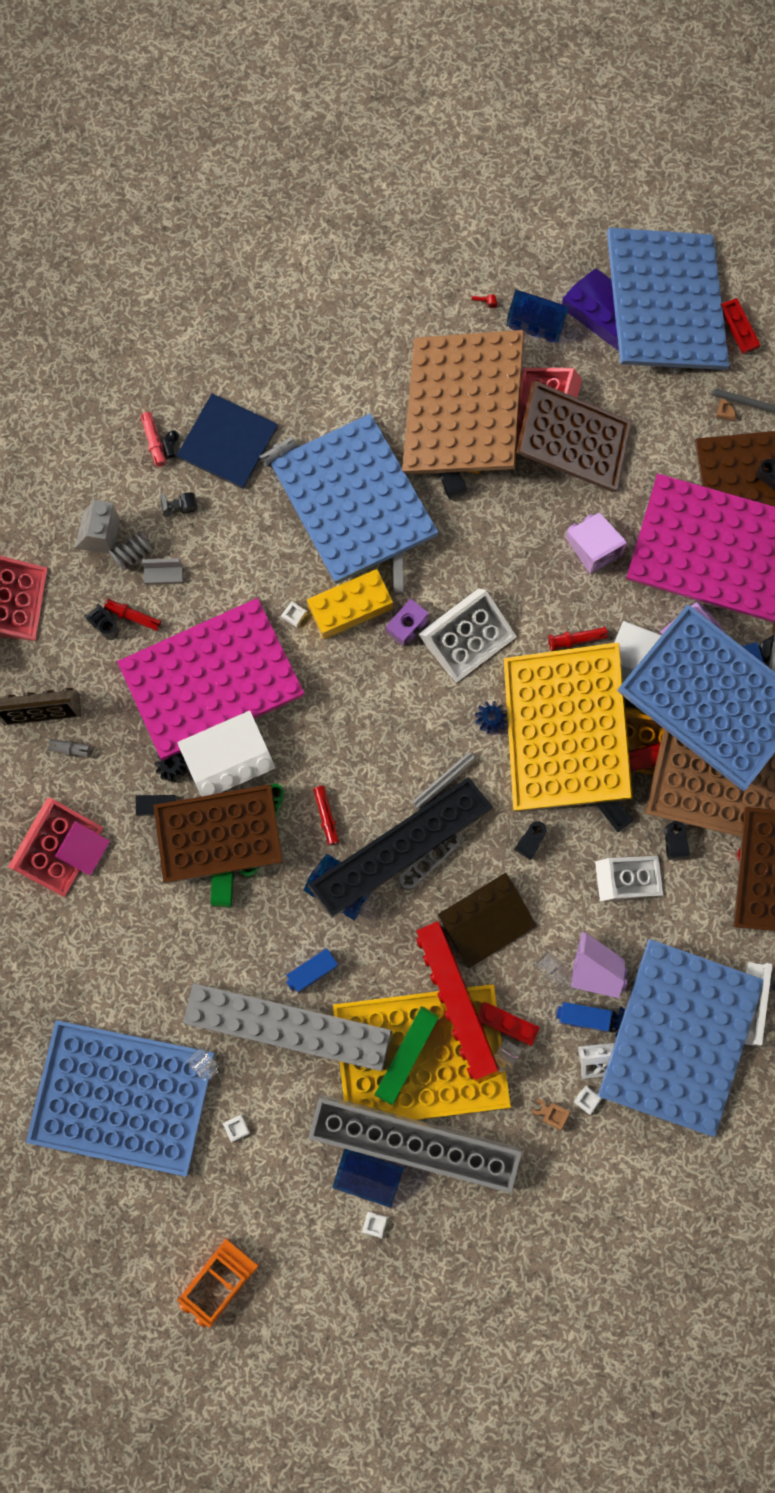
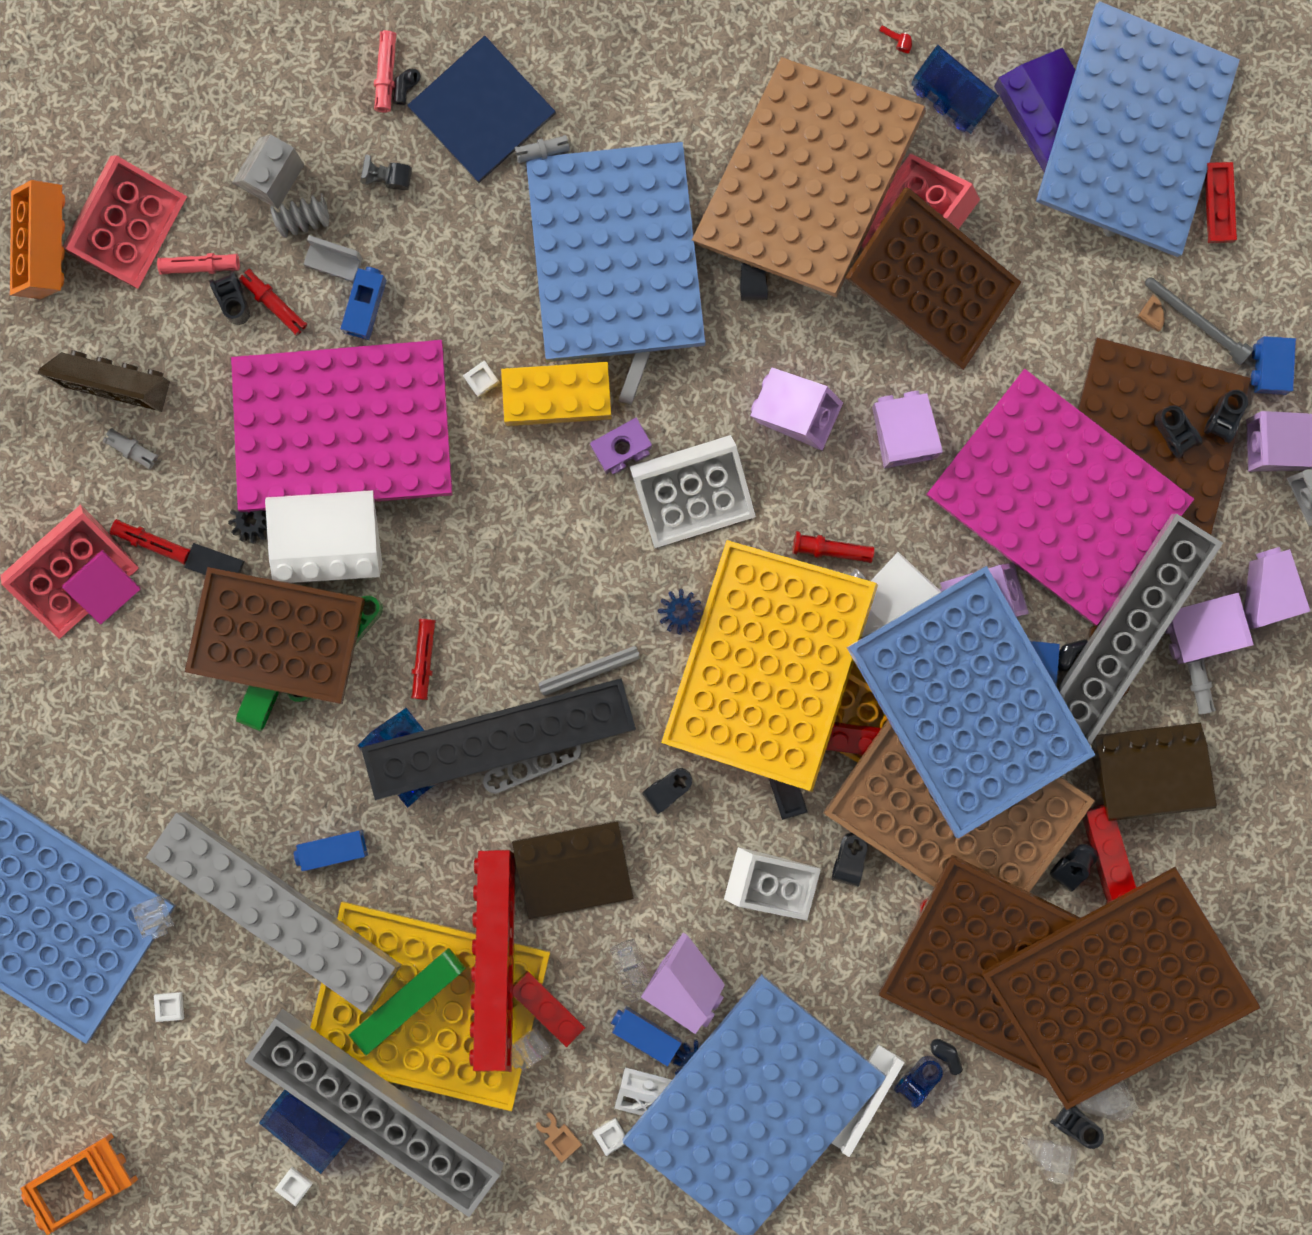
camera: 20 degrees right, 10 degrees up
(76, 606) = (191, 264): none -> coral pin
(106, 805) = (121, 530): none -> red pin
(195, 592) = (363, 303): none -> blue brick
(516, 554) = (796, 407): none -> slope

